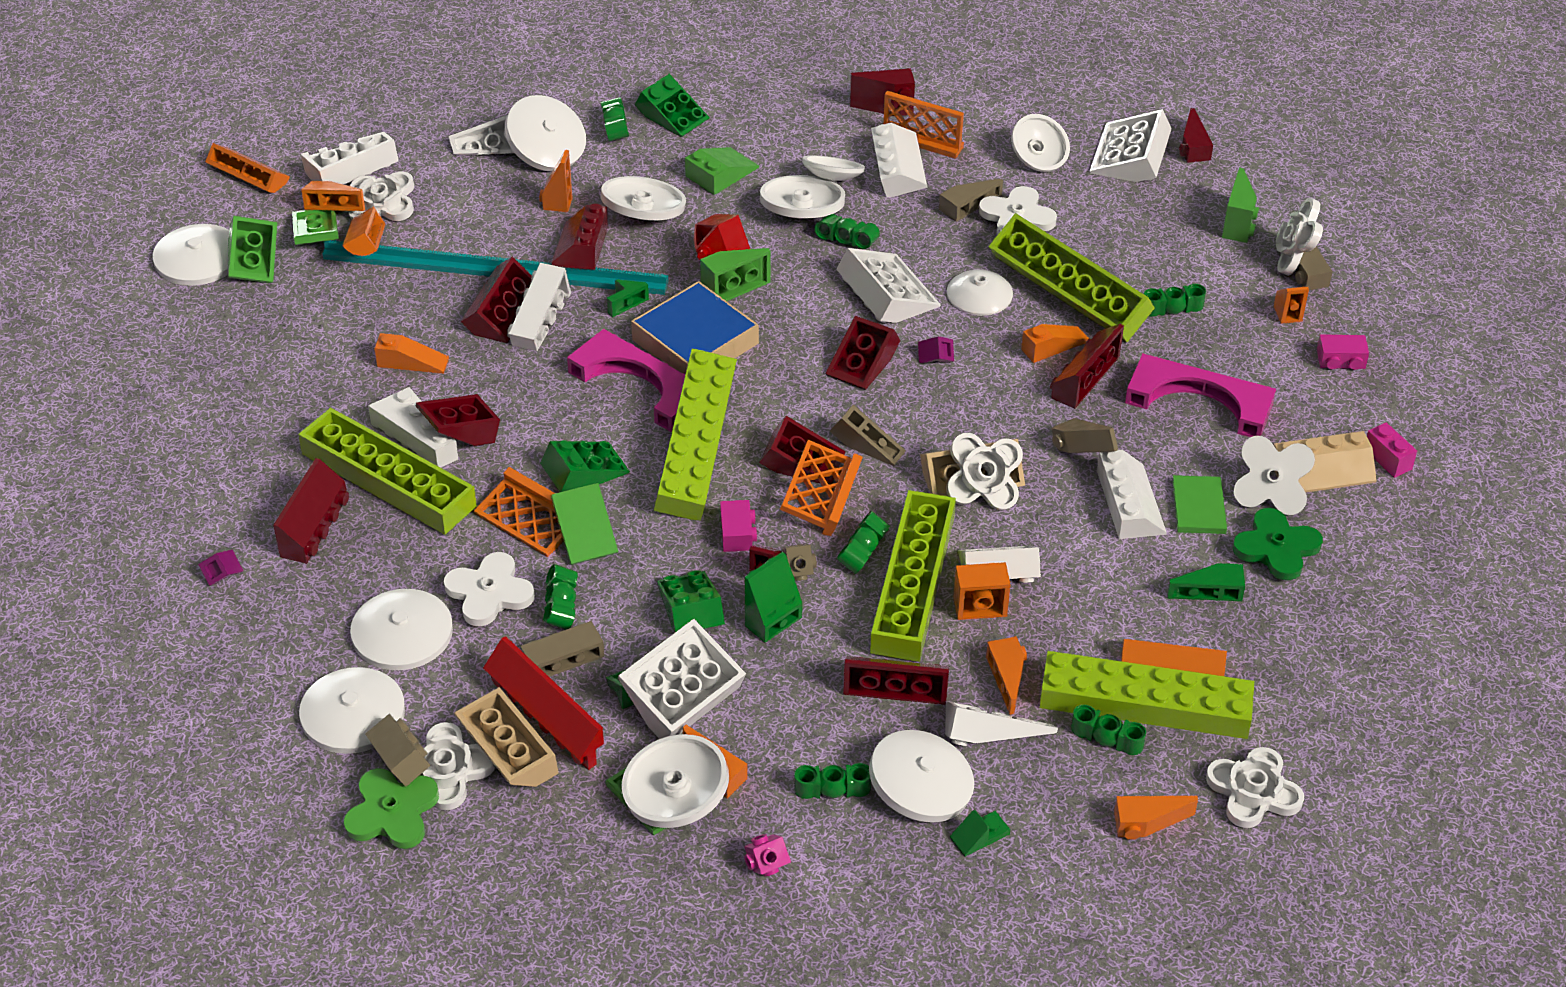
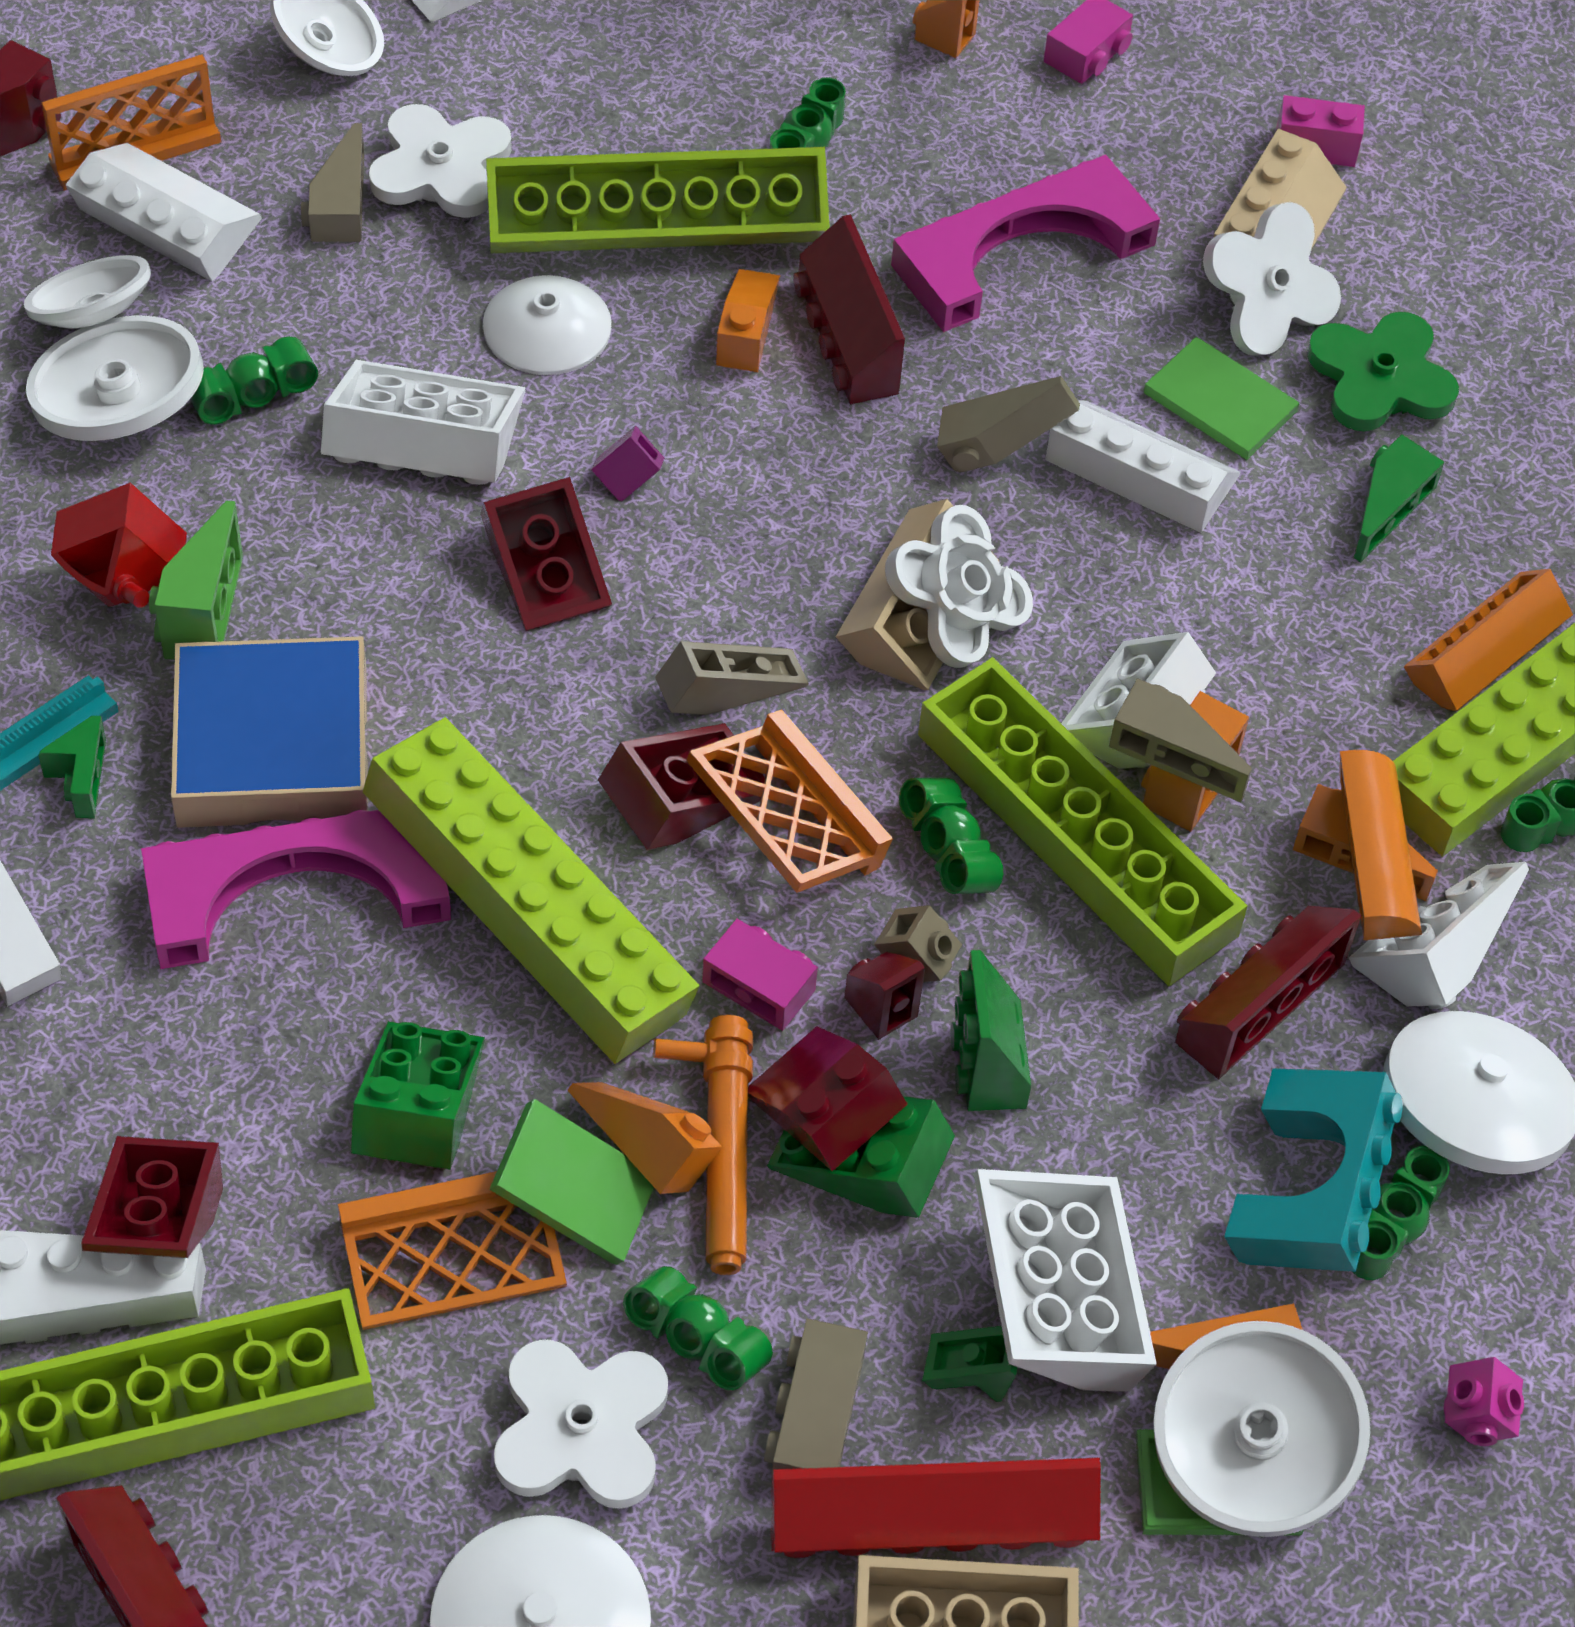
camera: 55 degrees left, 10 degrees up
(629, 535) = (659, 1139): none -> orange slope
(682, 543) = (727, 1072): none -> orange cylinder
(691, 569) = (828, 1095): none -> dark red slope
(790, 751) = (1329, 1223): none -> teal arch
(962, 554) = (1175, 738): none -> dark tan slope
(999, 665) = (1378, 845): none -> orange brick

